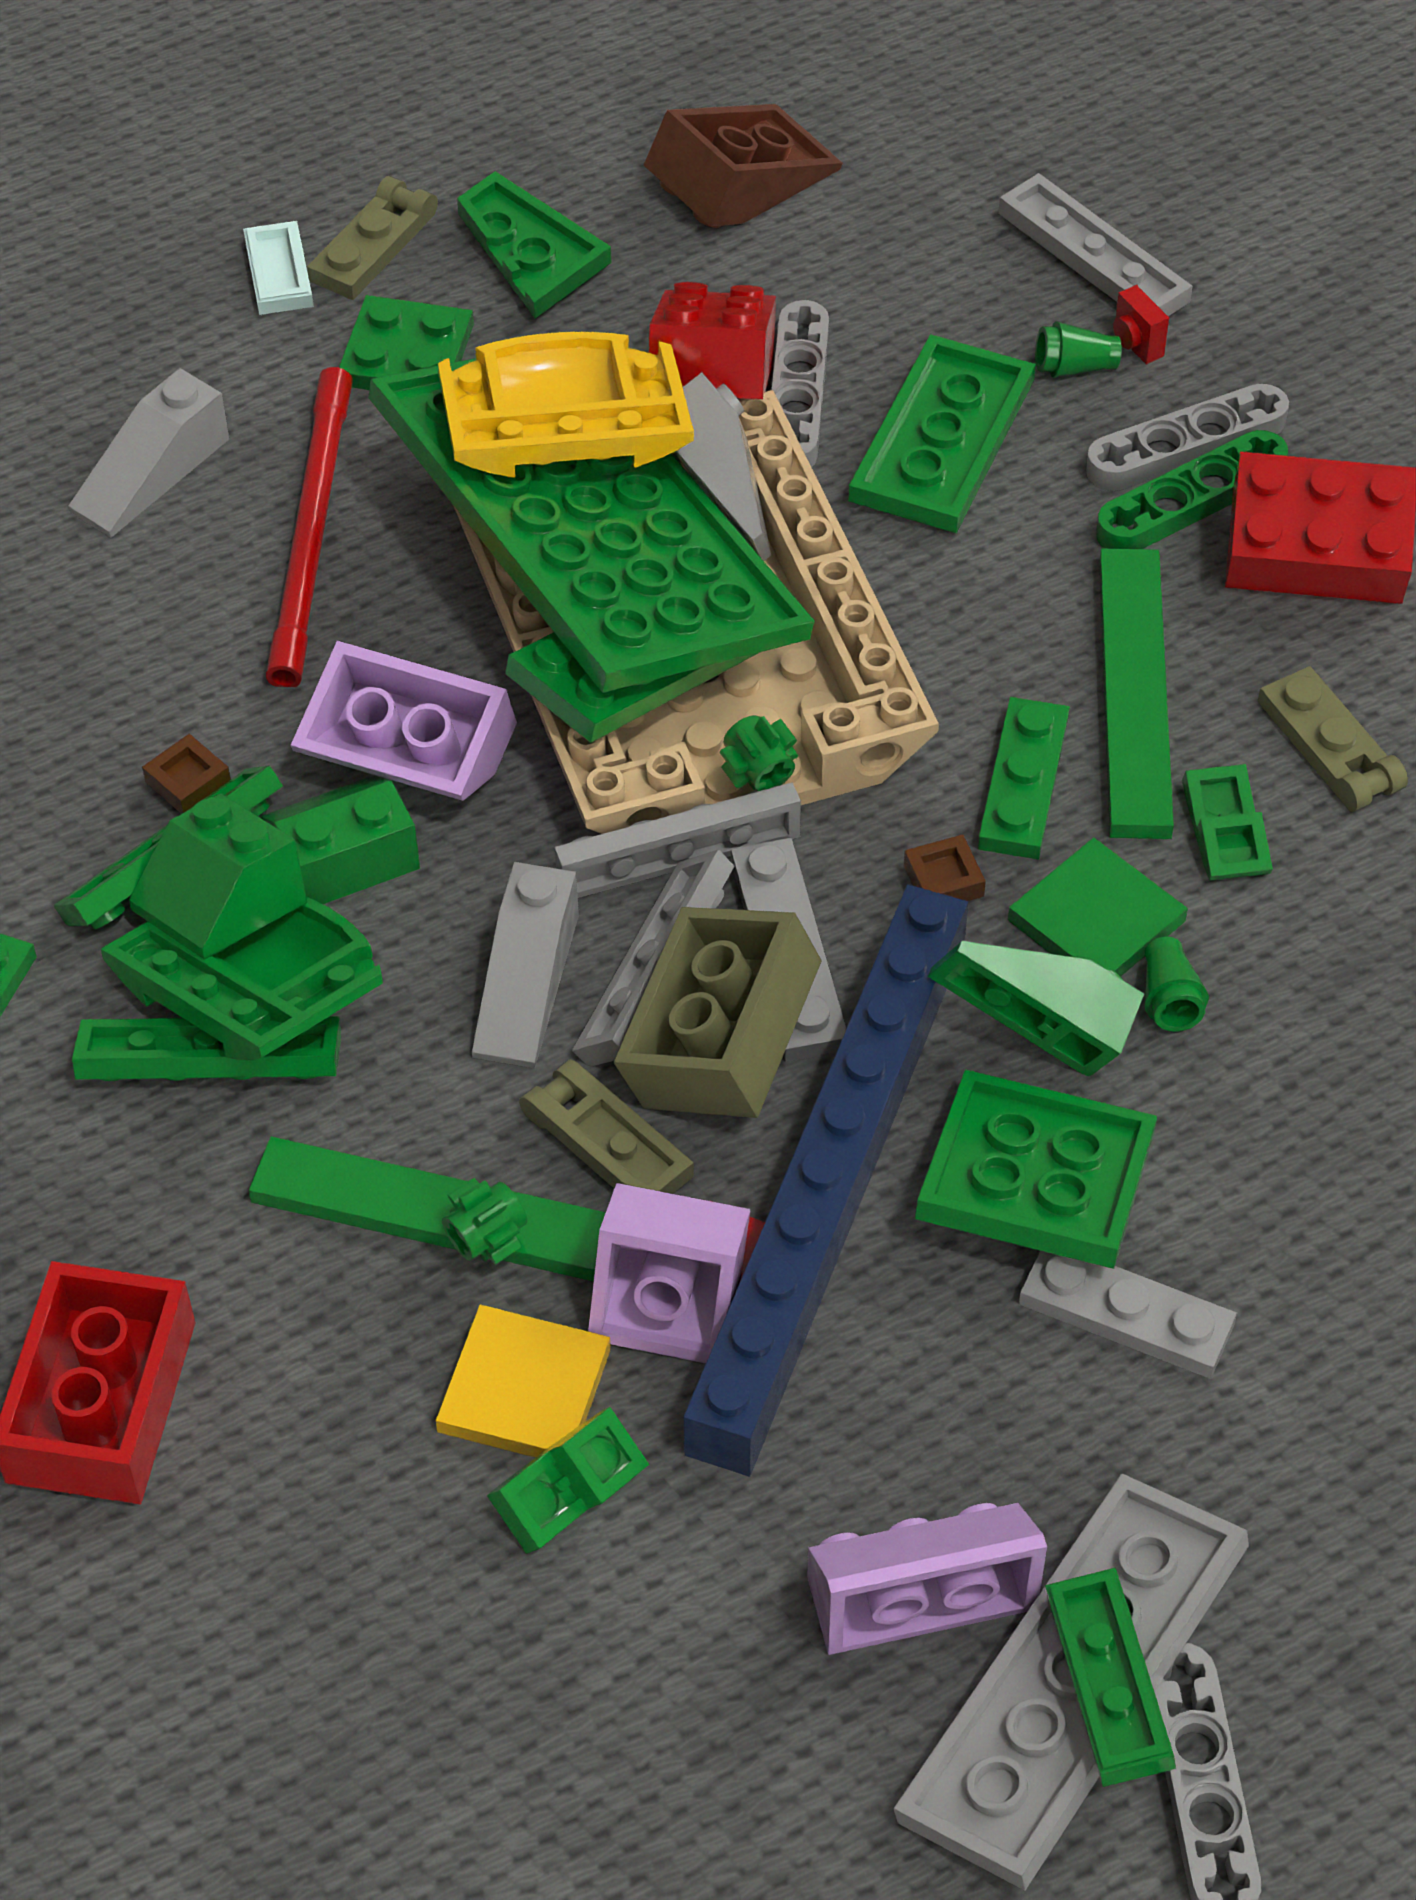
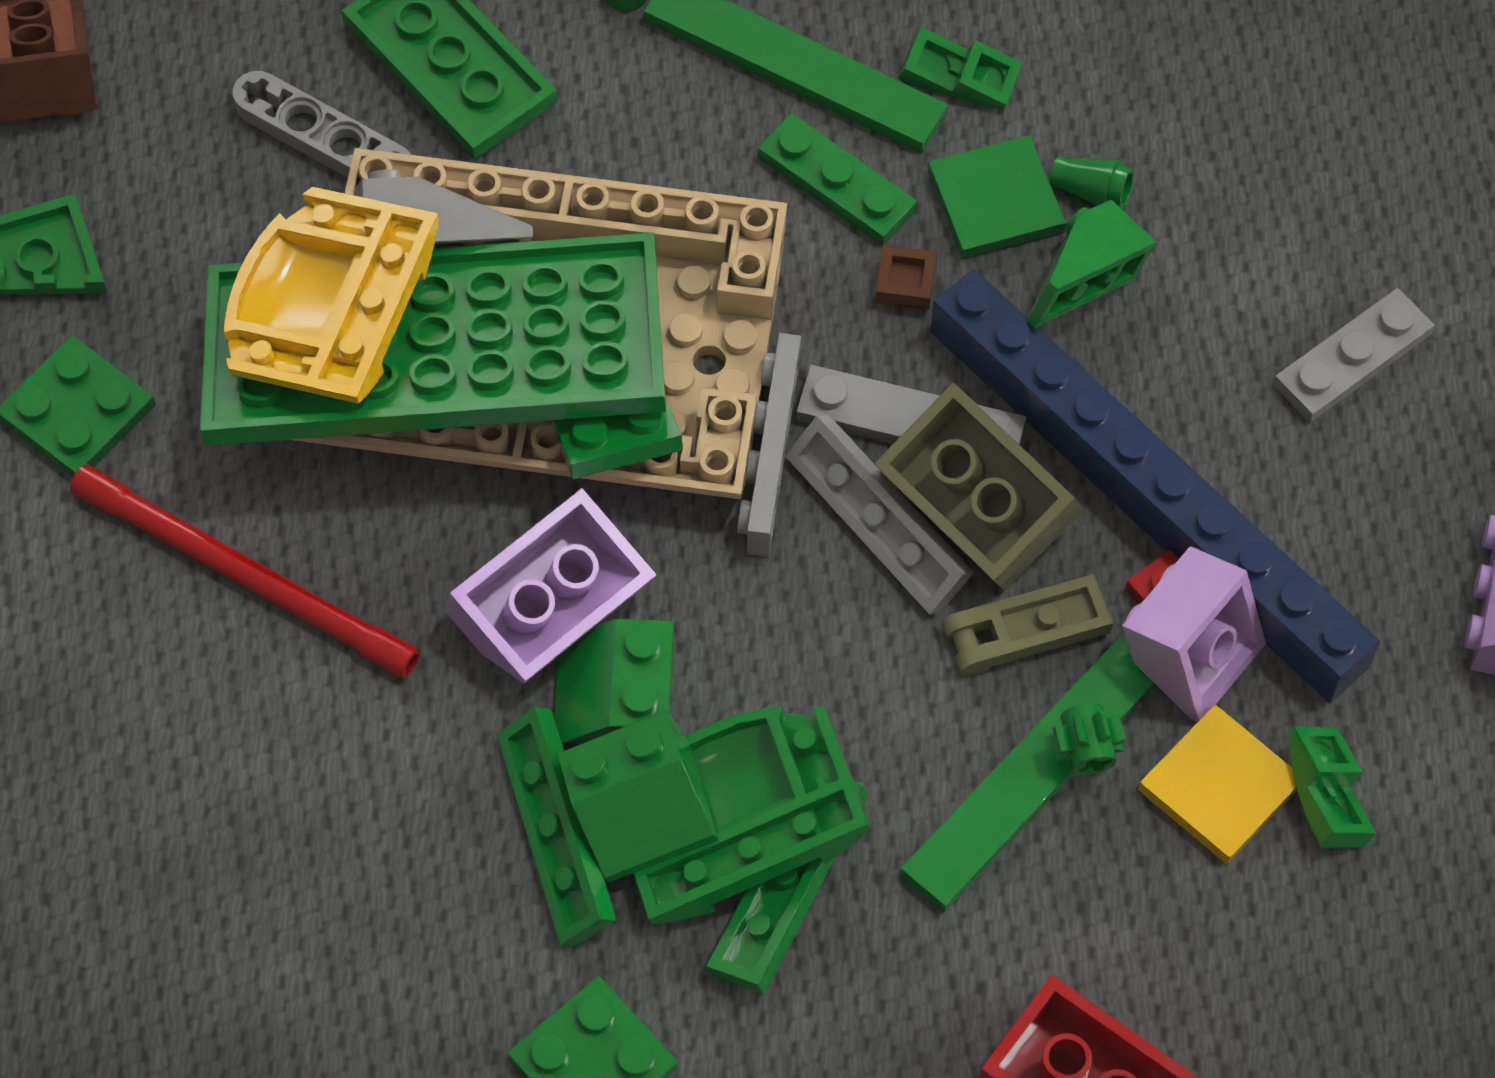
camera: 65 degrees left, 10 degrees up
(152, 452) = (84, 665): light grey slope -> none
(185, 773) = (480, 782): reddish brown plate -> none
(526, 963) = (834, 607): light grey slope -> none
(718, 335) = (268, 156): red brick -> none
(759, 753) = (745, 340): green gear -> none
(1037, 1168) = (1221, 347): green plate -> none

